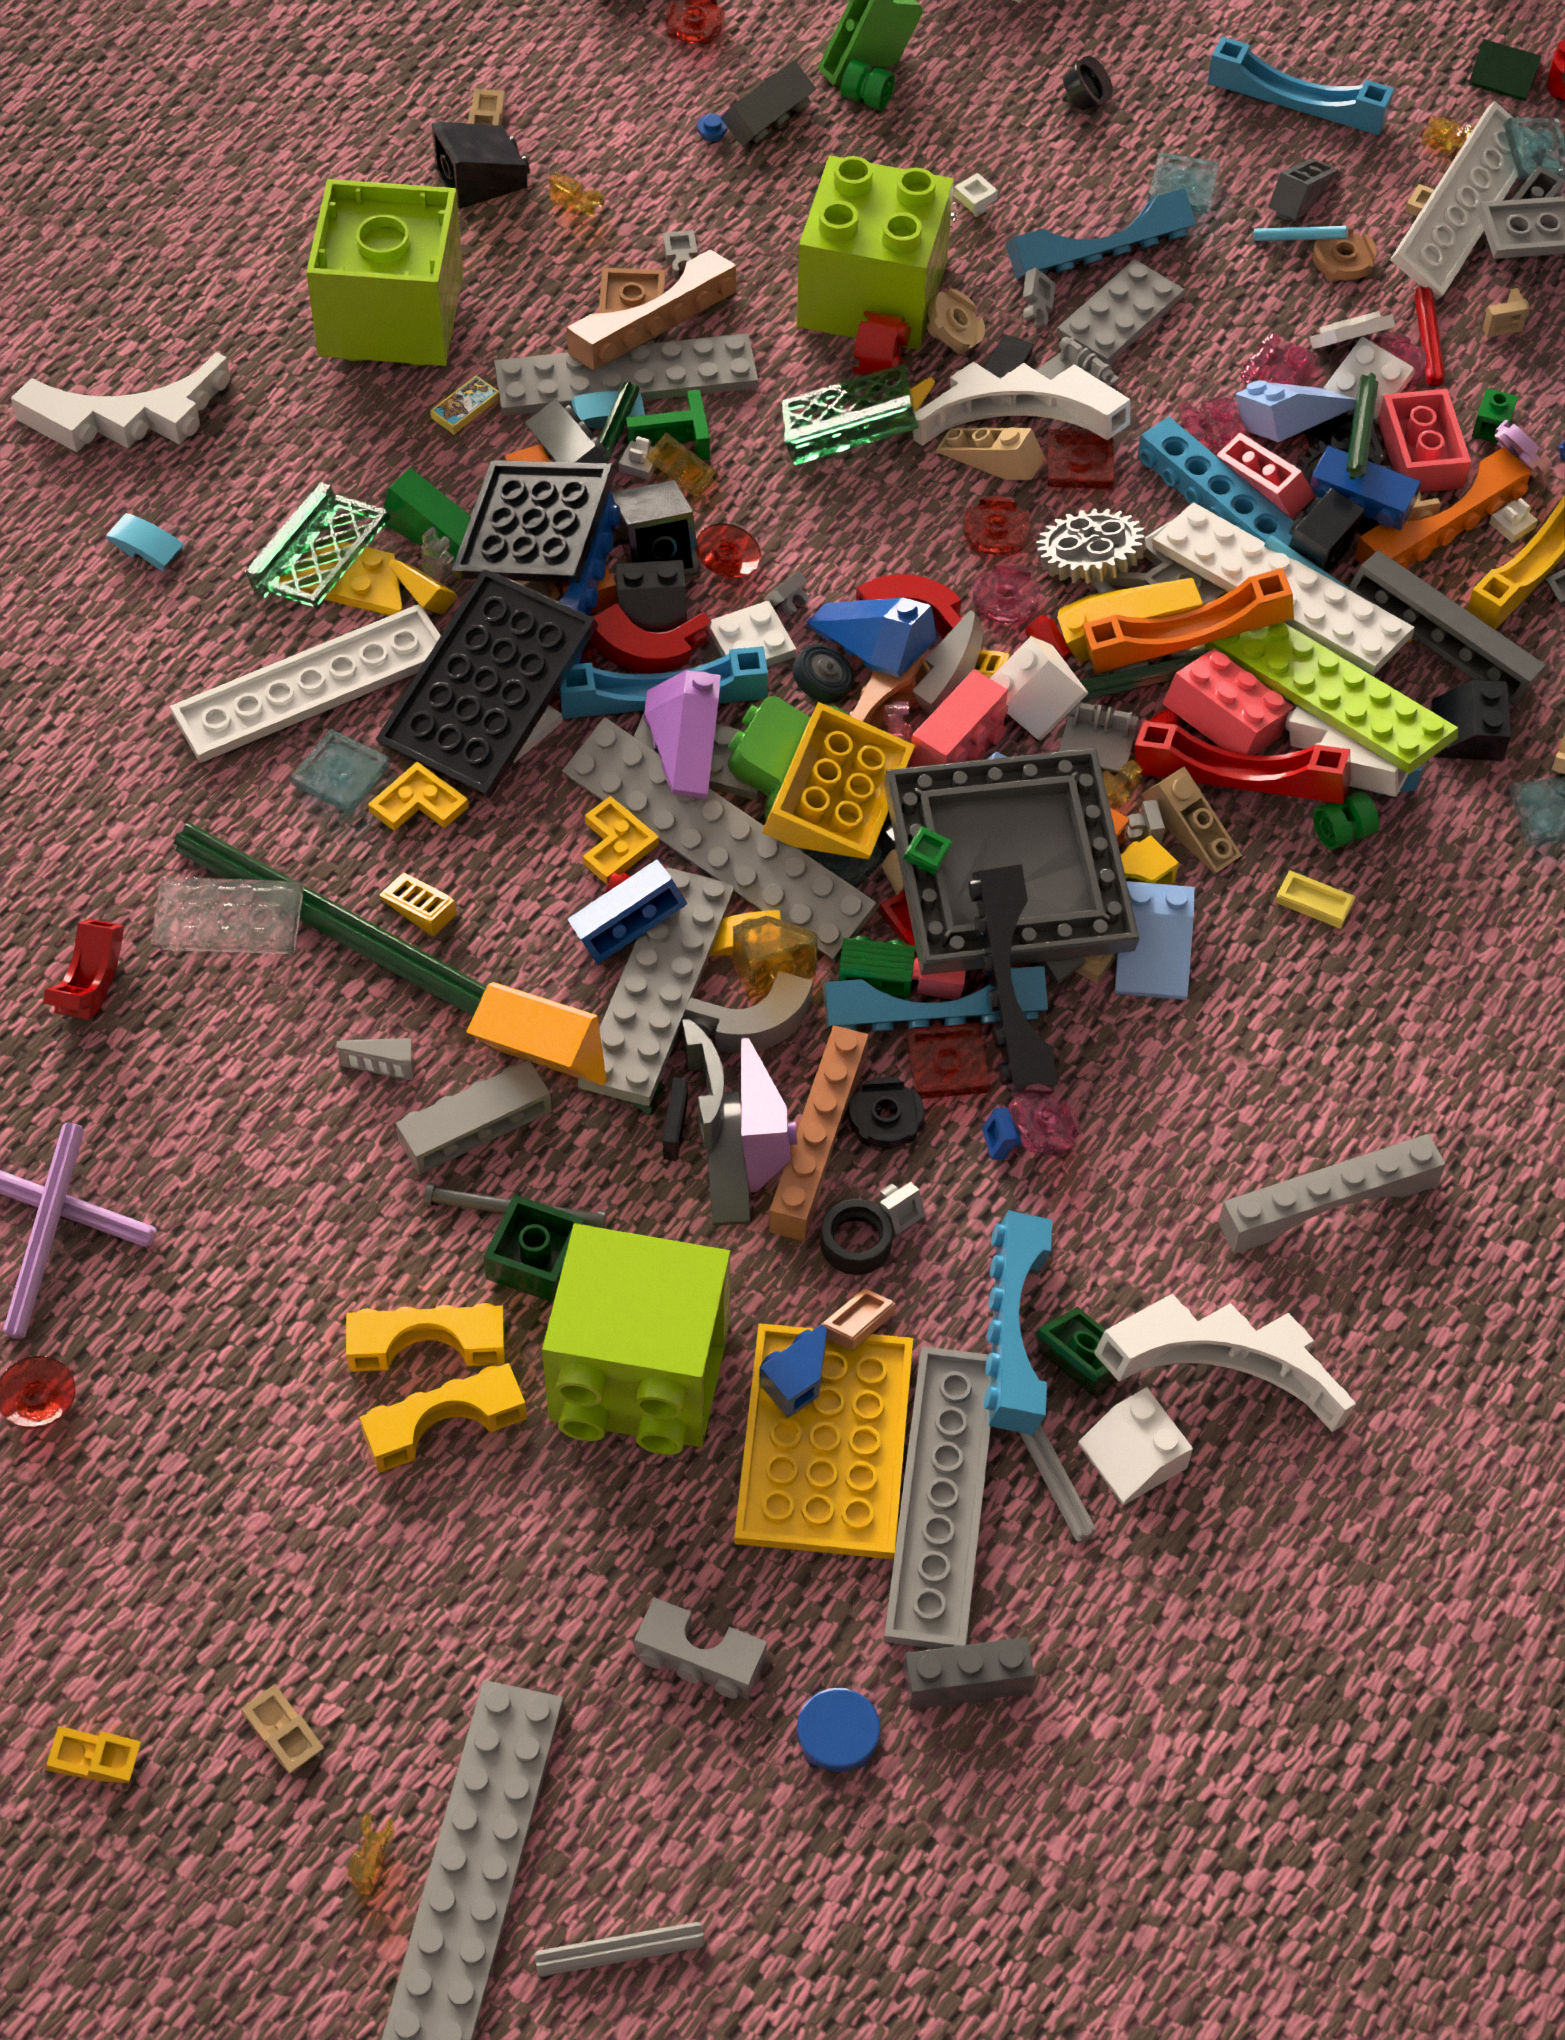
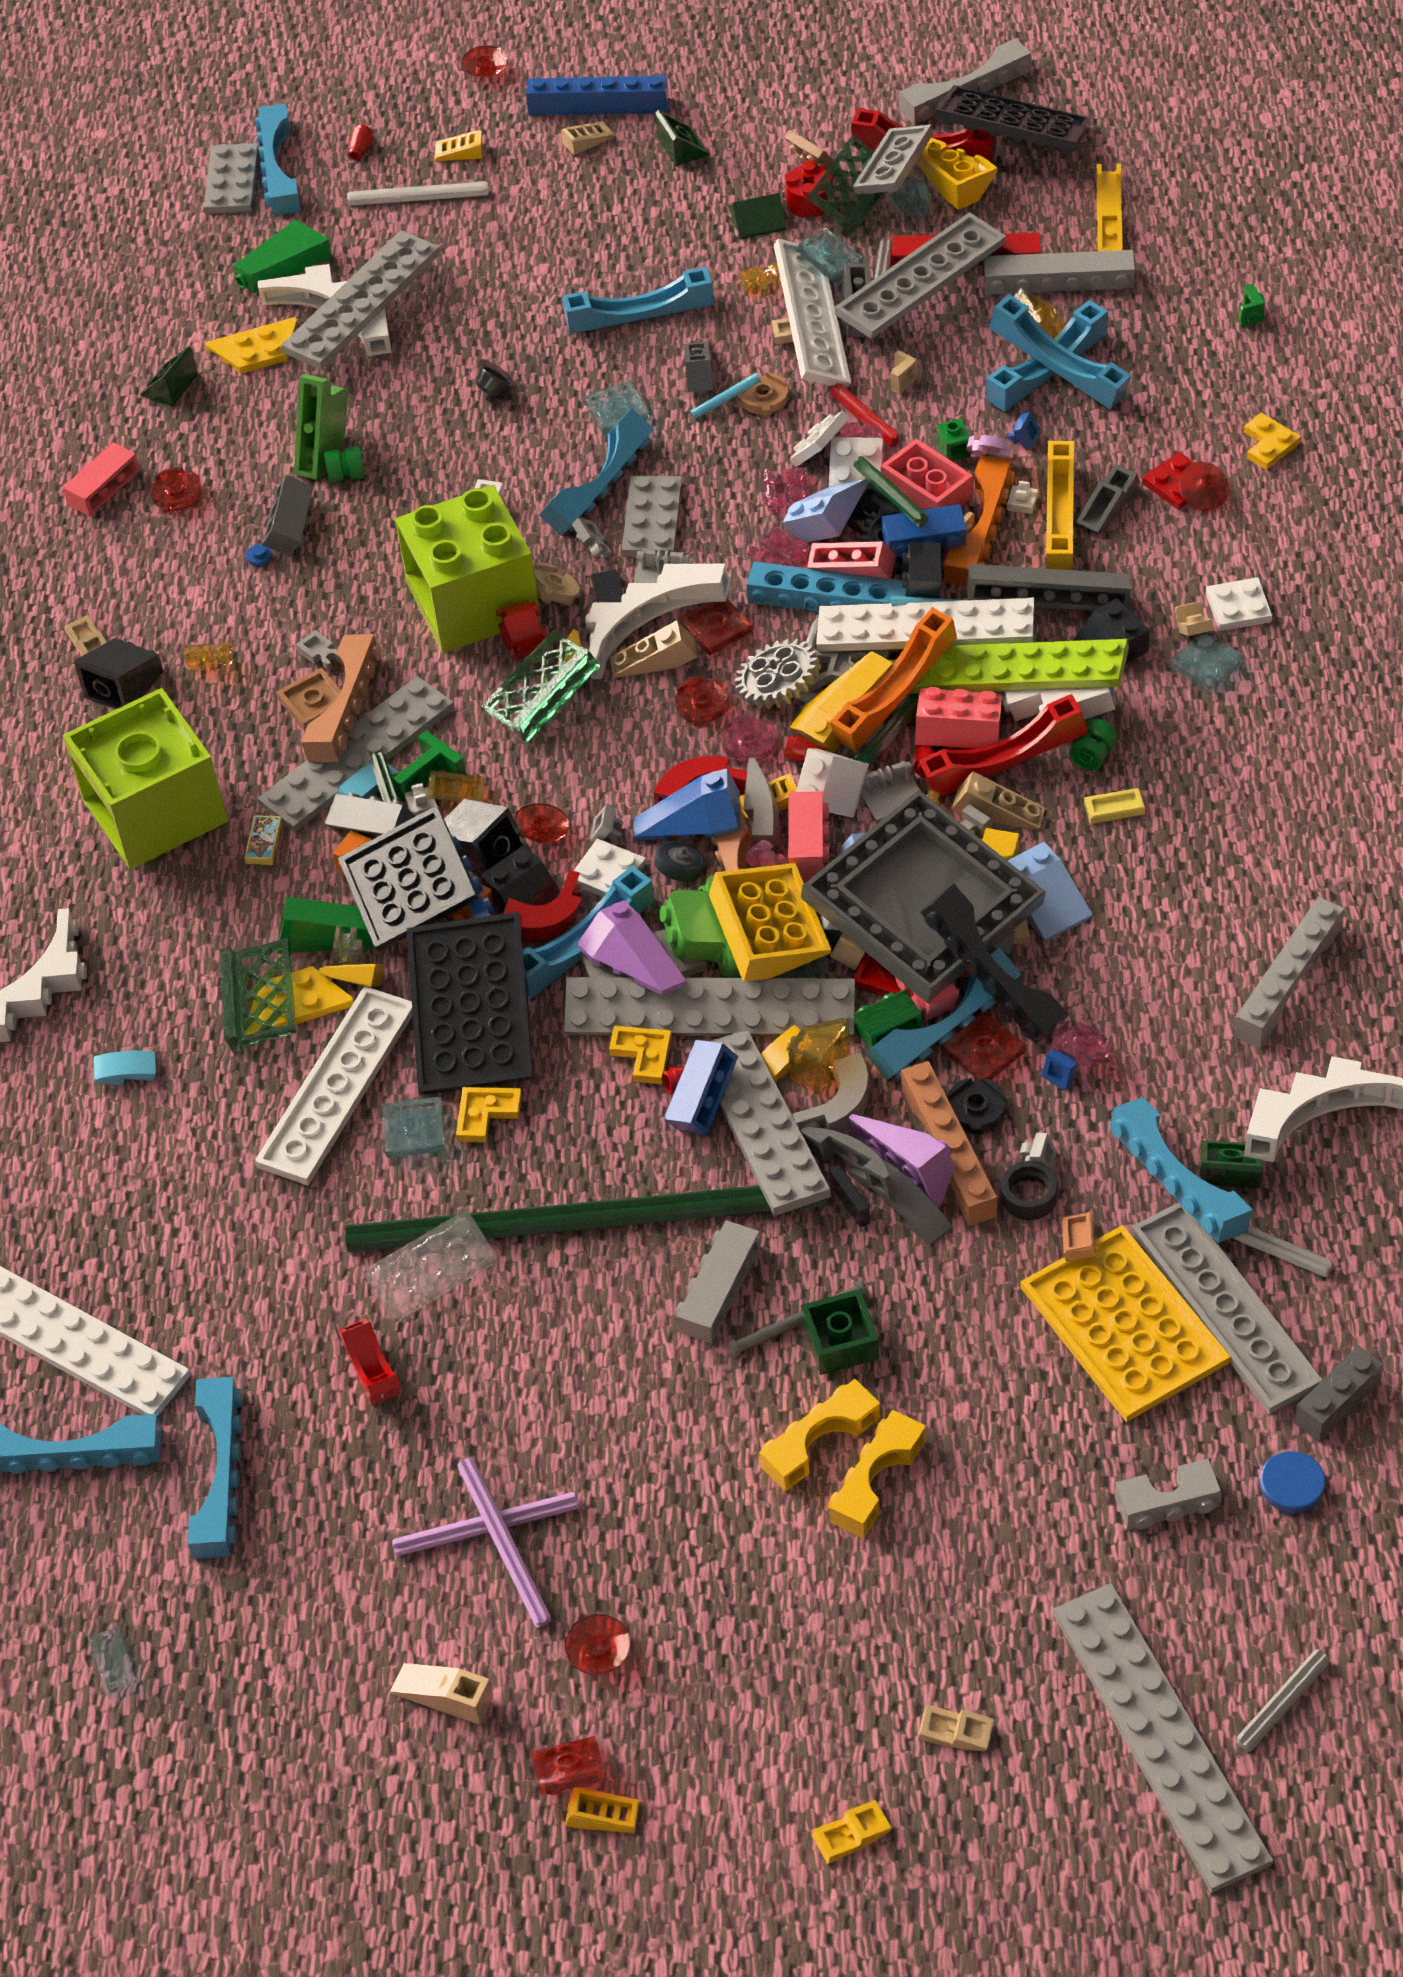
camera: 30 degrees left, 5 degrees down
(367, 1864) = (1087, 1762): clear yellow plate -> none
(378, 1056) = (621, 1285): light grey slope -> none
(428, 922) = (555, 1184): yellow slope -> none
(540, 1032) = (726, 1193): light orange slope -> none
(636, 1338) = (970, 1332): lime piece -> none
(795, 1374) = (1078, 1290): blue slope -> none
(928, 850) = (874, 918): green tile -> none
(1136, 1447) = (1312, 1196): white slope -> none

